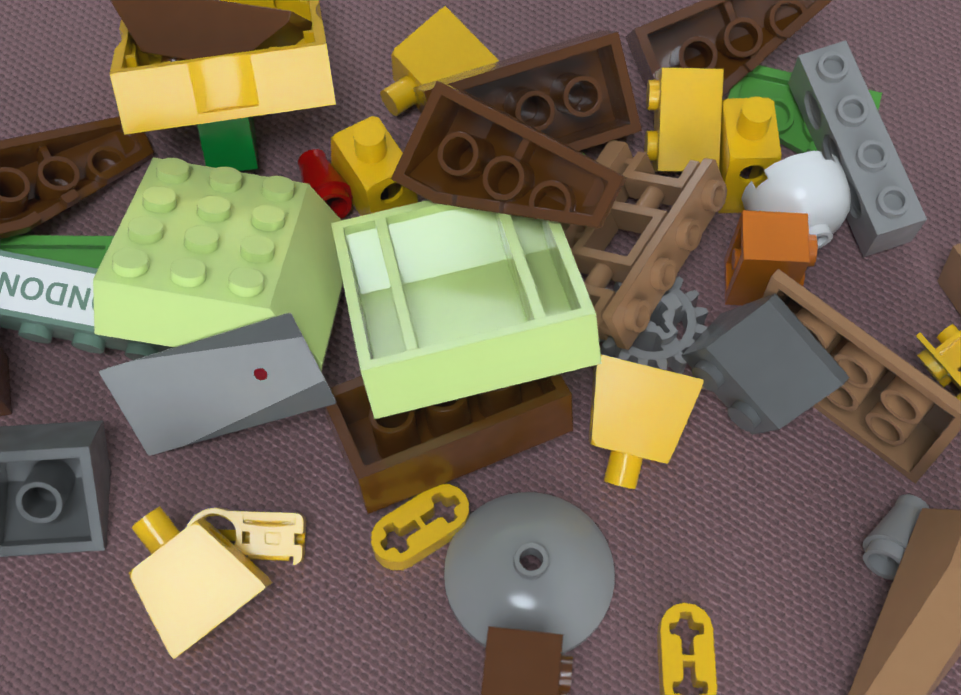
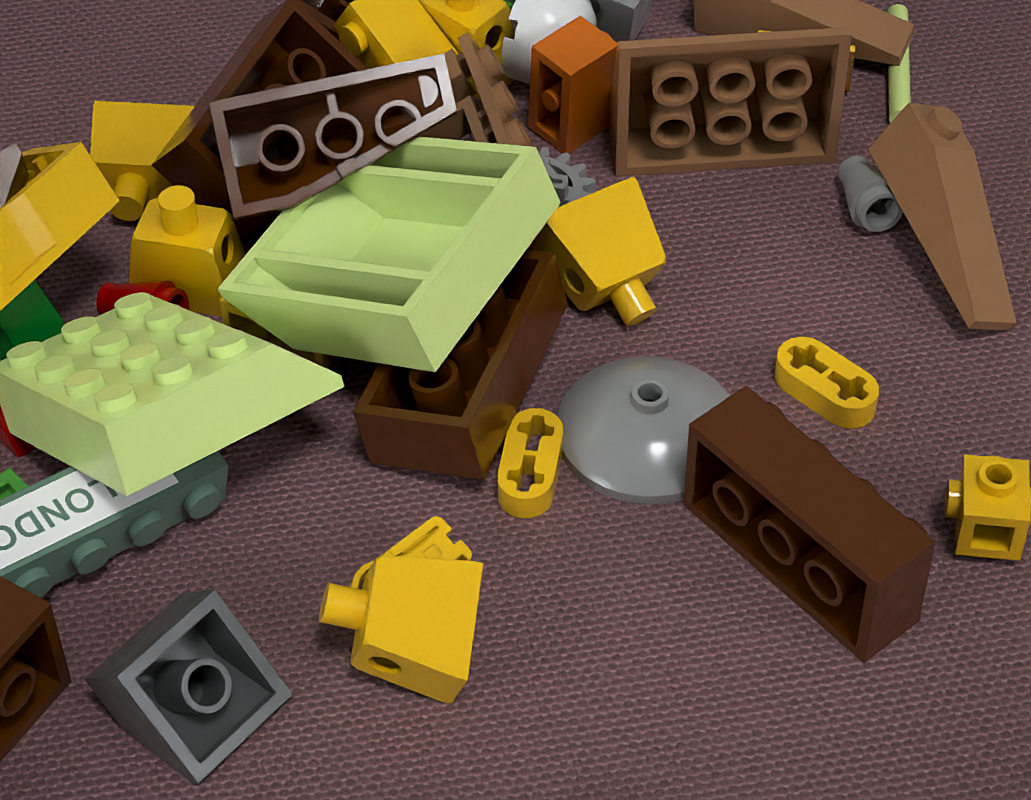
camera: 45 degrees left, 15 degrees down
(219, 385) = (264, 471): light grey sticker -> none
(763, 365) = (664, 136): dark grey slope -> none

